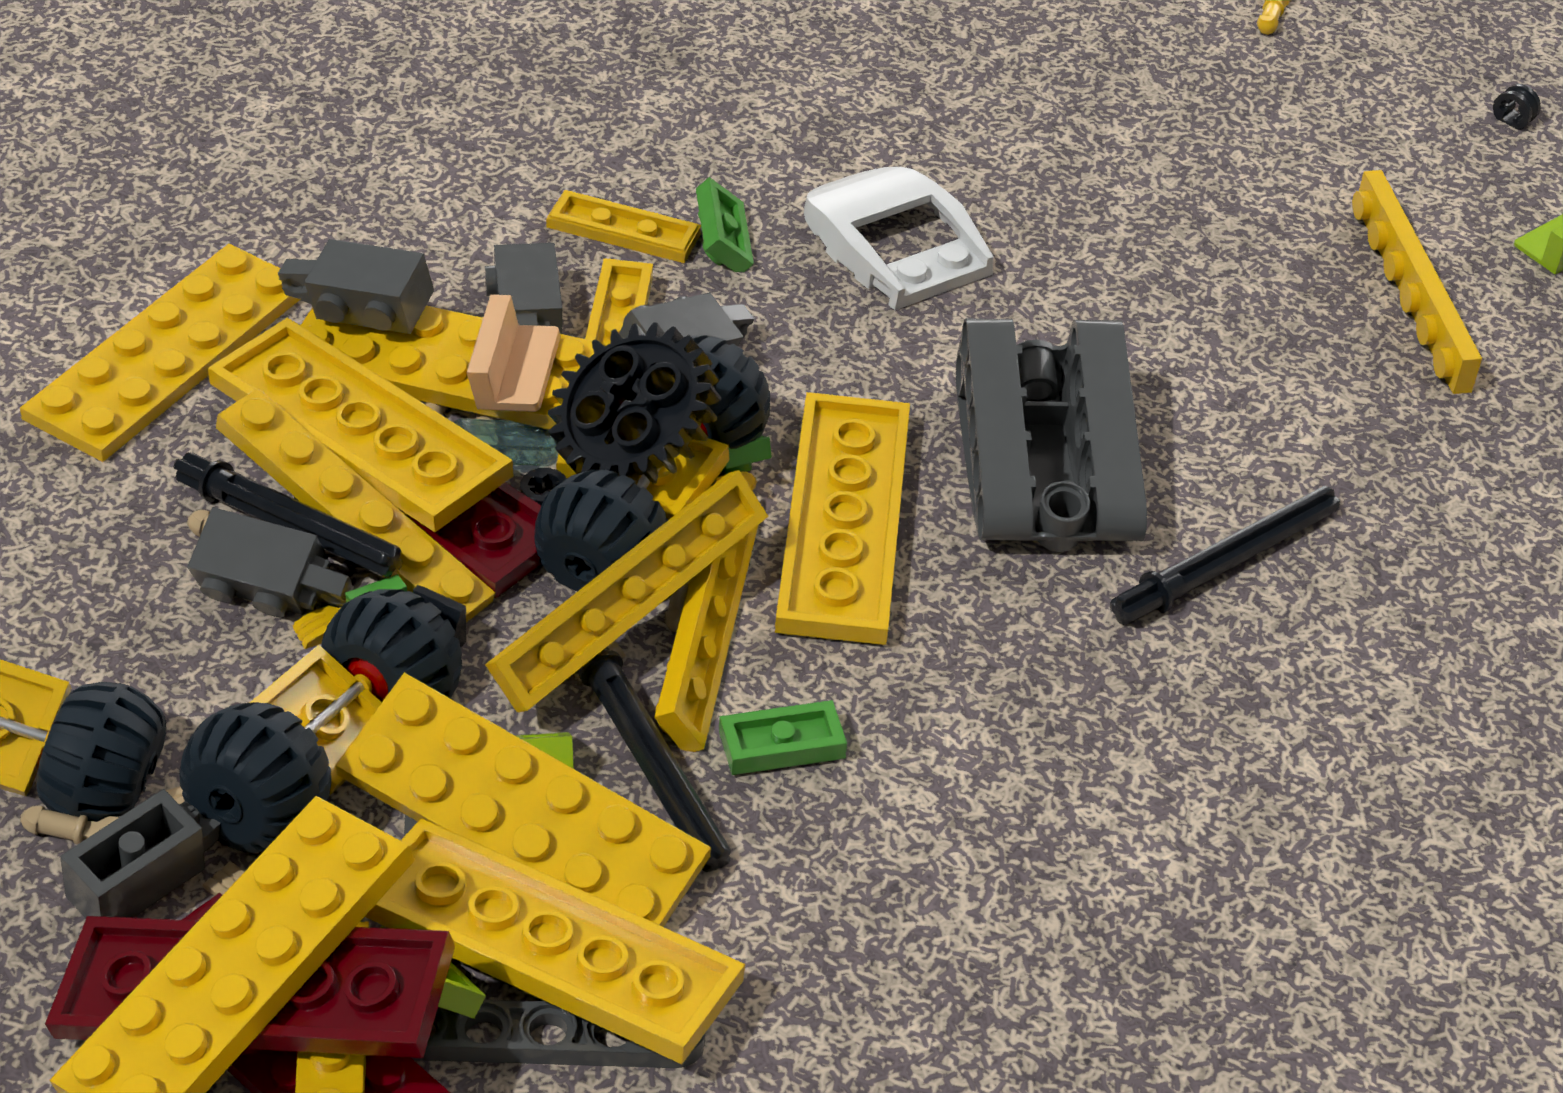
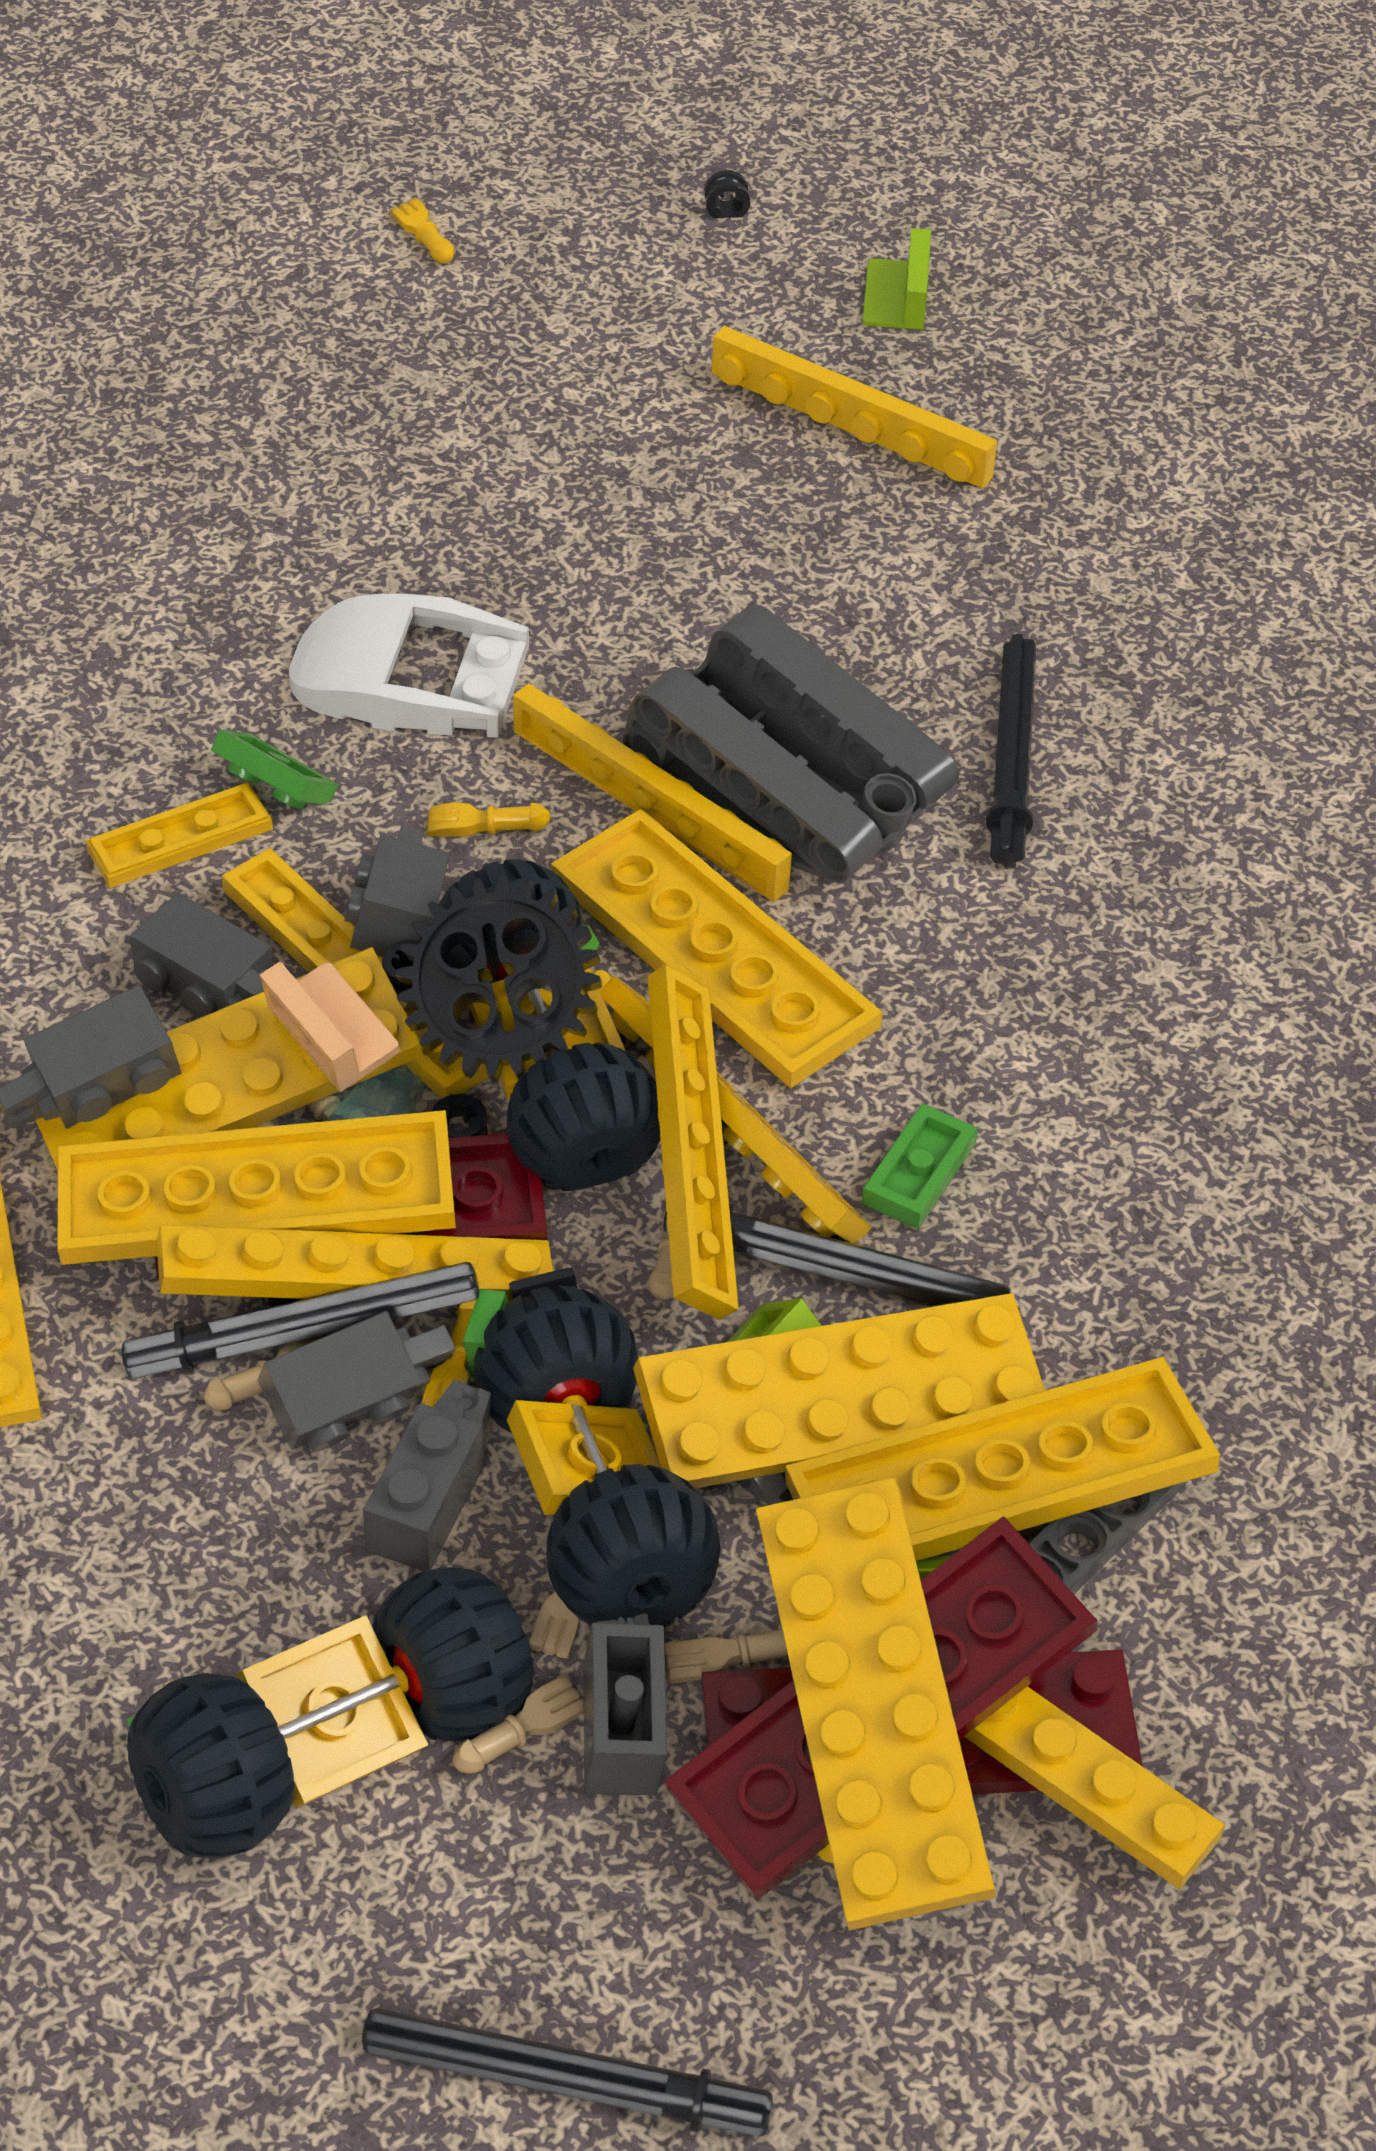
camera: 45 degrees left, 5 degrees up
(229, 652) = (428, 1478): none -> dark grey hinge
(801, 337) = (465, 820): none -> yellow piece
(937, 416) = (643, 785): none -> yellow plate

